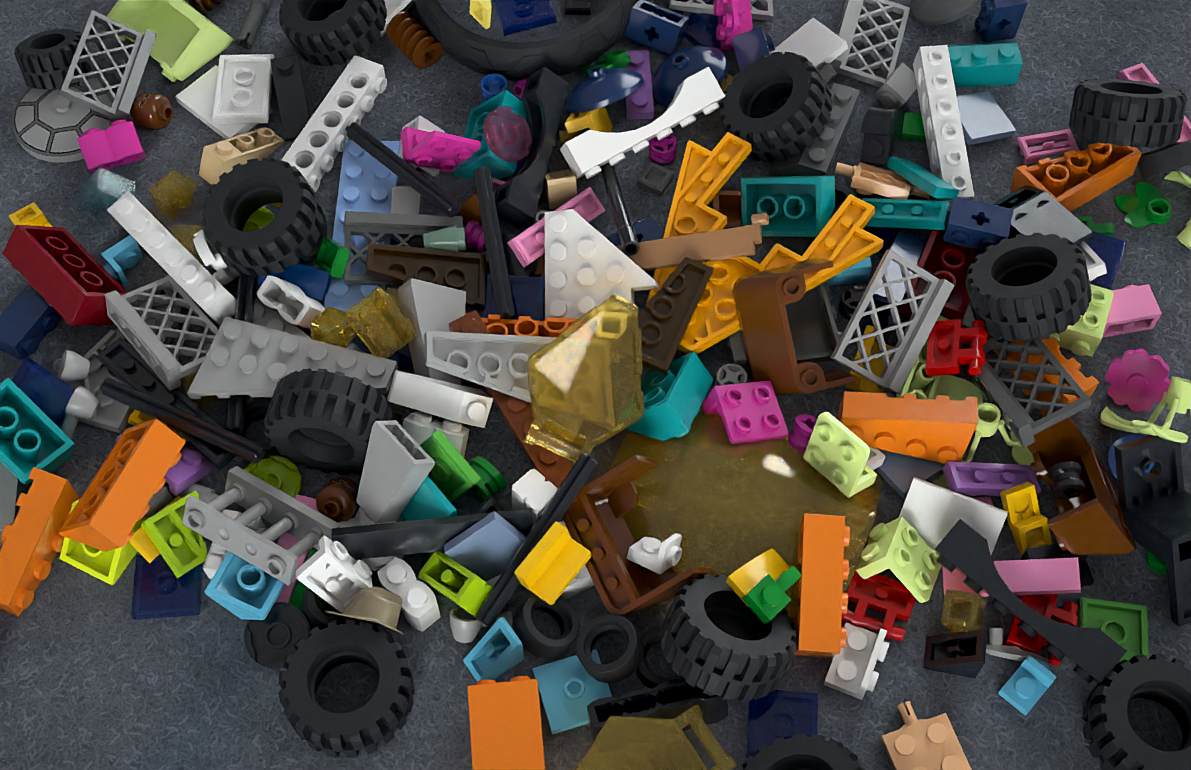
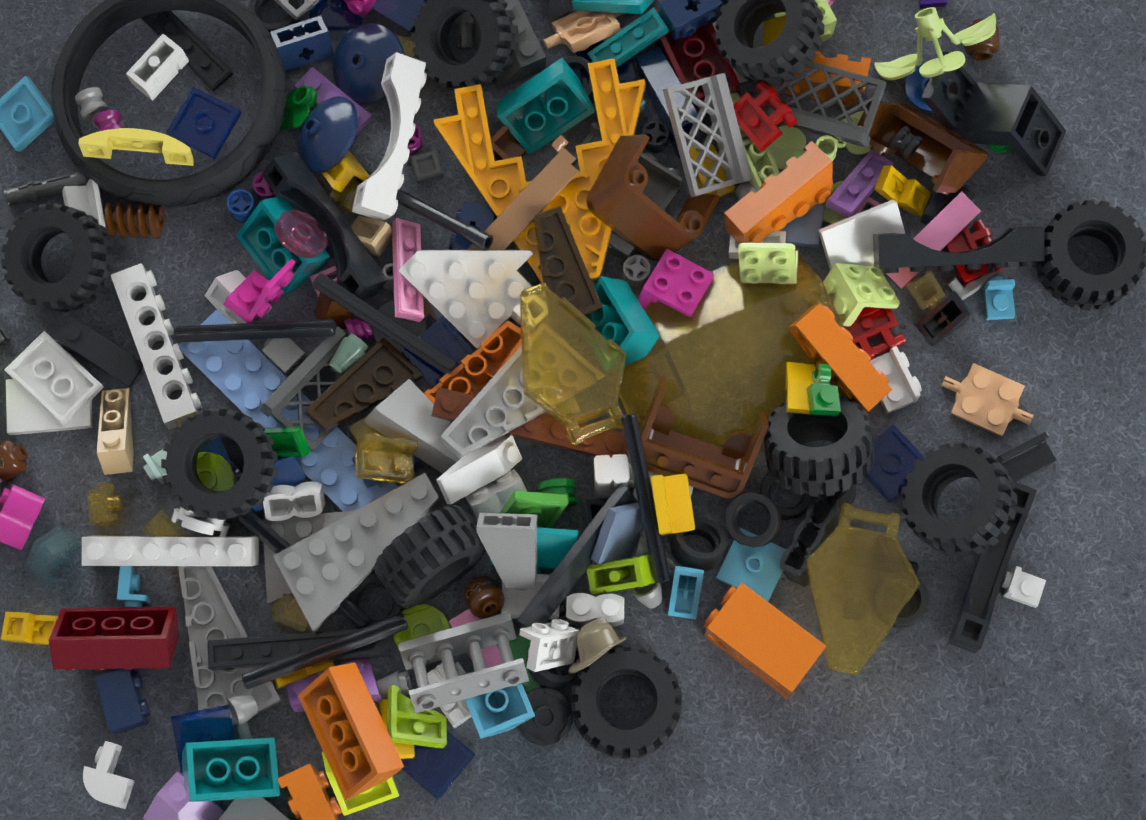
camera: 45 degrees left, 15 degrees up
(71, 366) = (199, 694): light grey bar -> none
(144, 336) = (227, 624): light grey fence -> none
(332, 328) = (349, 492): clear yellow brick -> none
(656, 555) = (718, 435): white bracket -> none
(803, 430) = (725, 263): magenta wheel -> none
(1120, 621) = (1013, 209): bright green tile -> none
(1137, 380) = (882, 28): dark pink plant -> none

